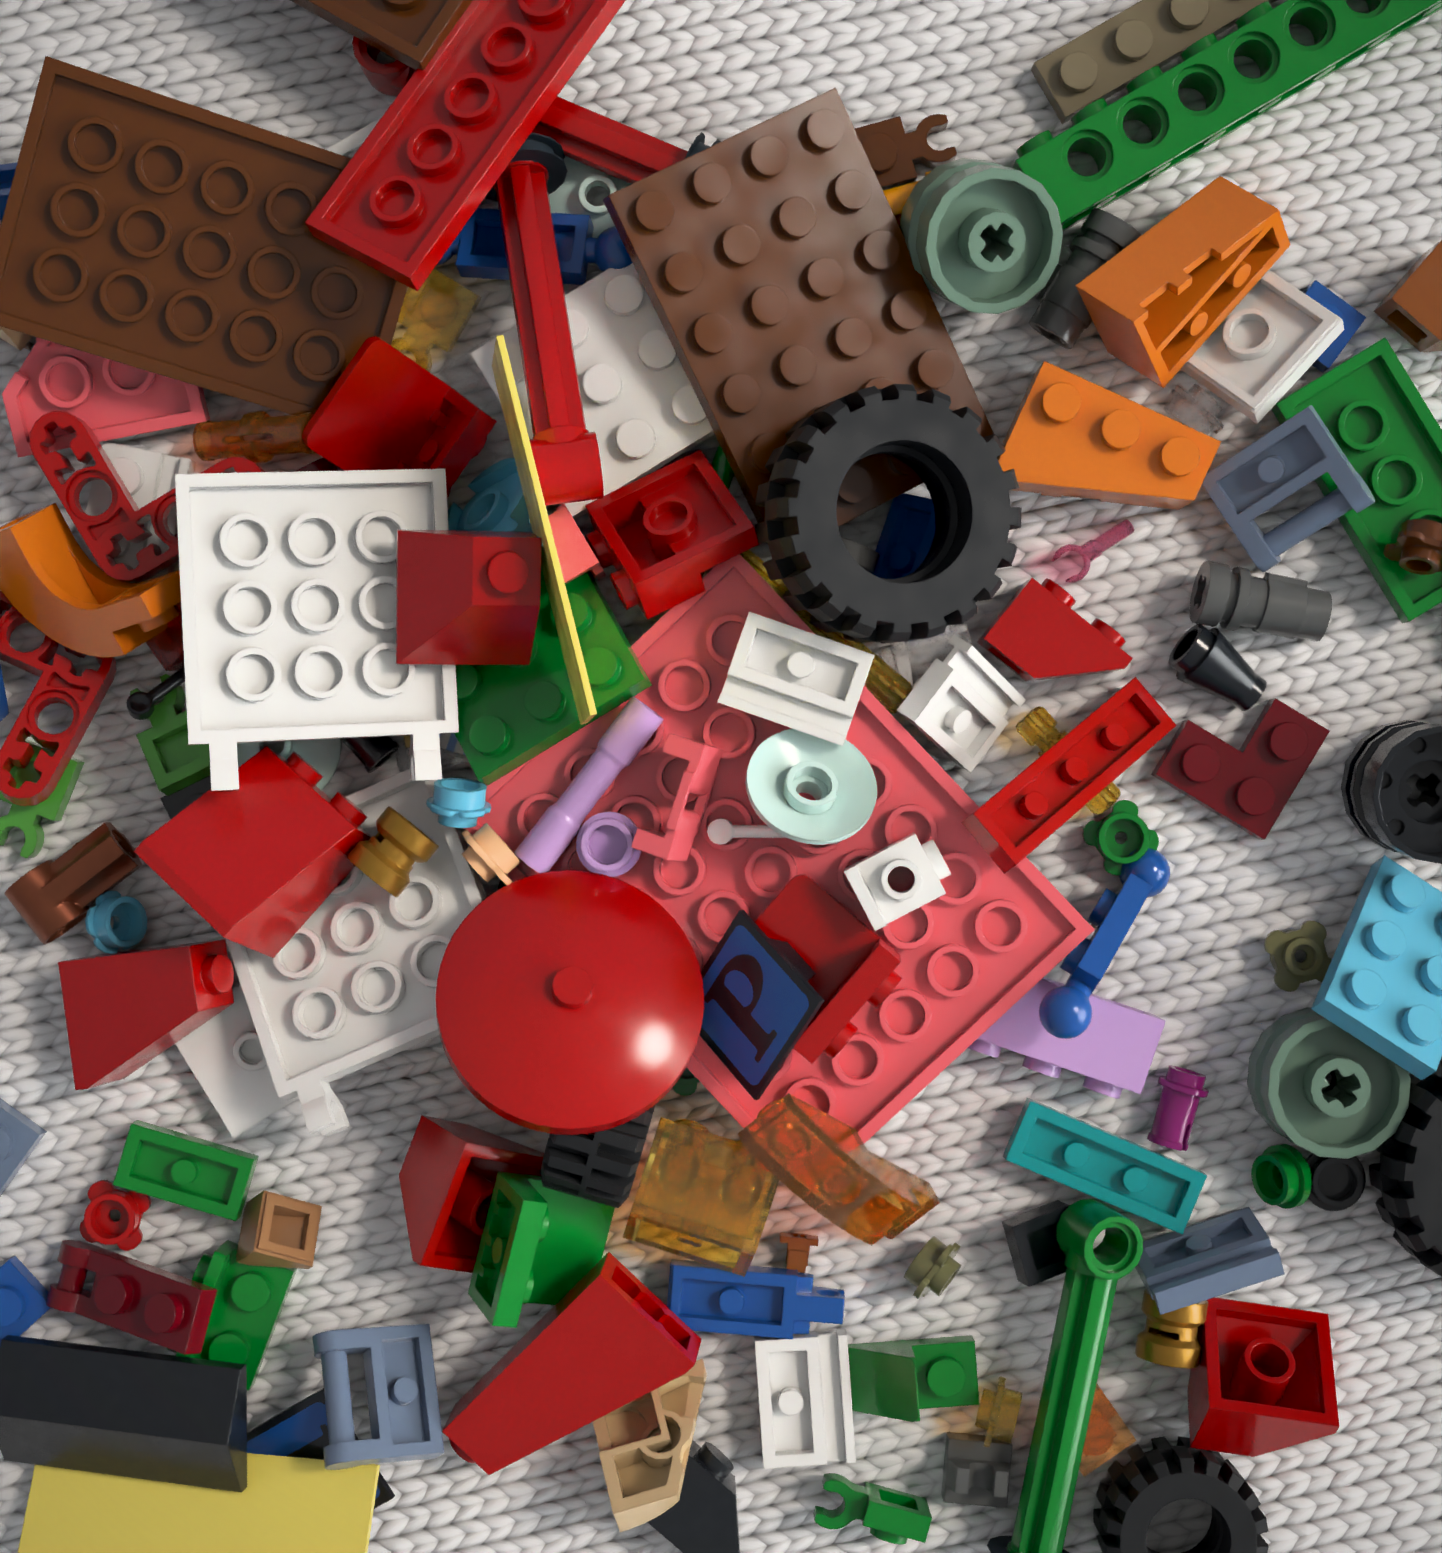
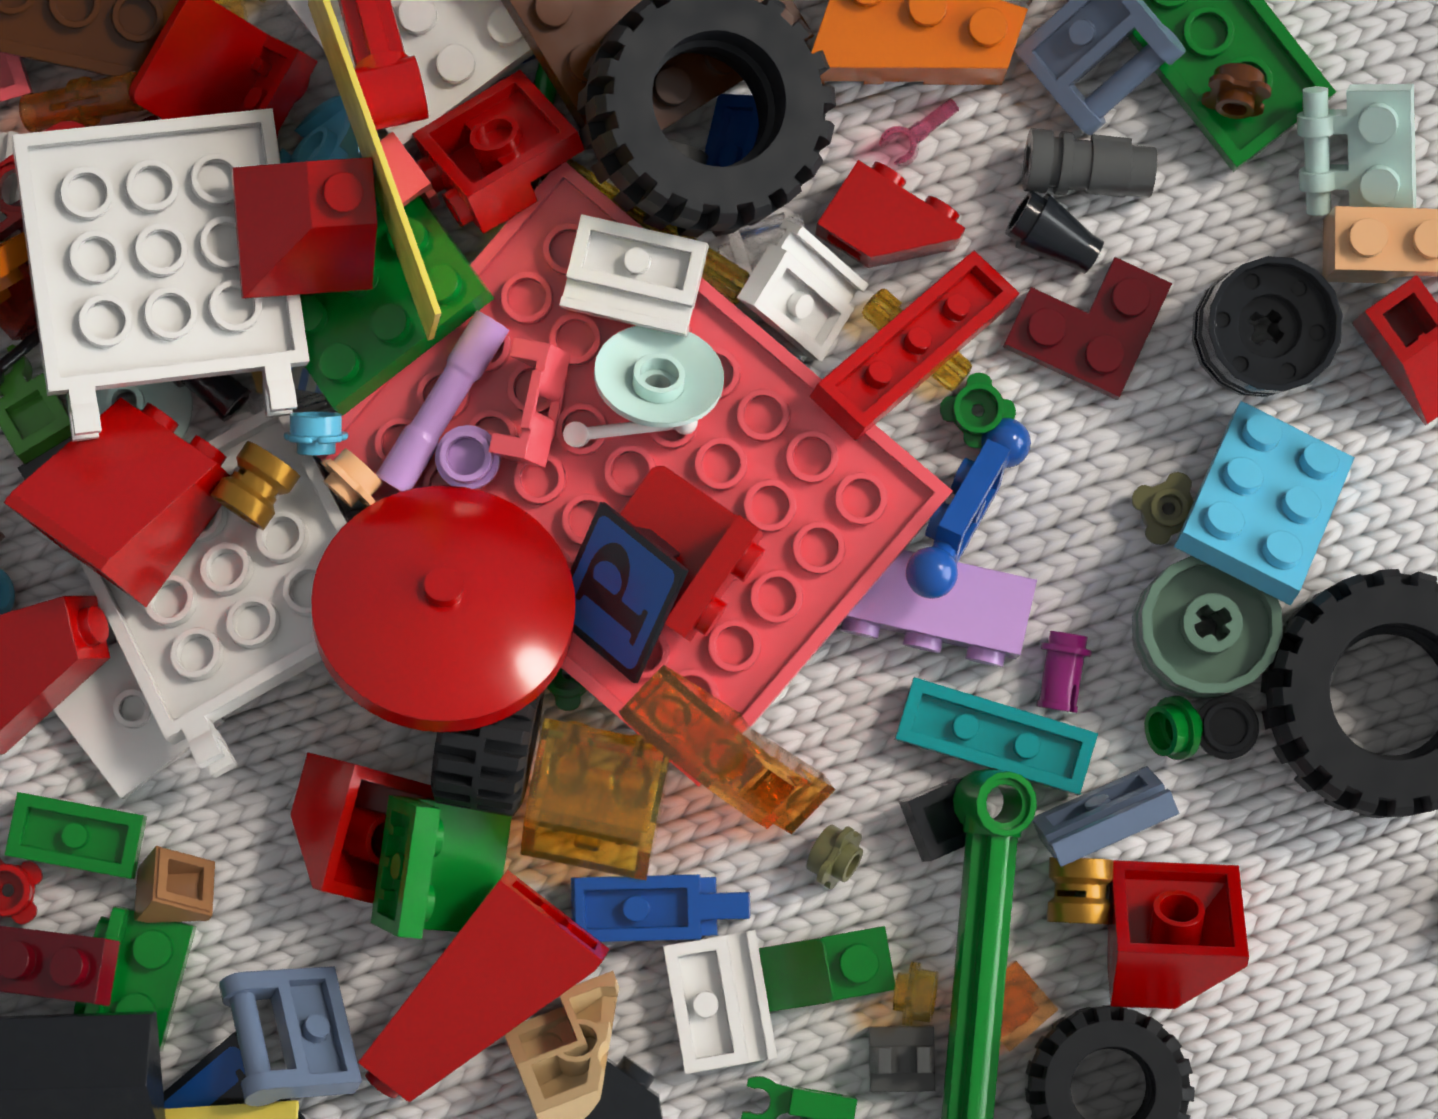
camera: 10 degrees left, 5 degrees down
(798, 1249) = (698, 856): dark orange piece -> none
(871, 883) = (745, 482): white brick -> none

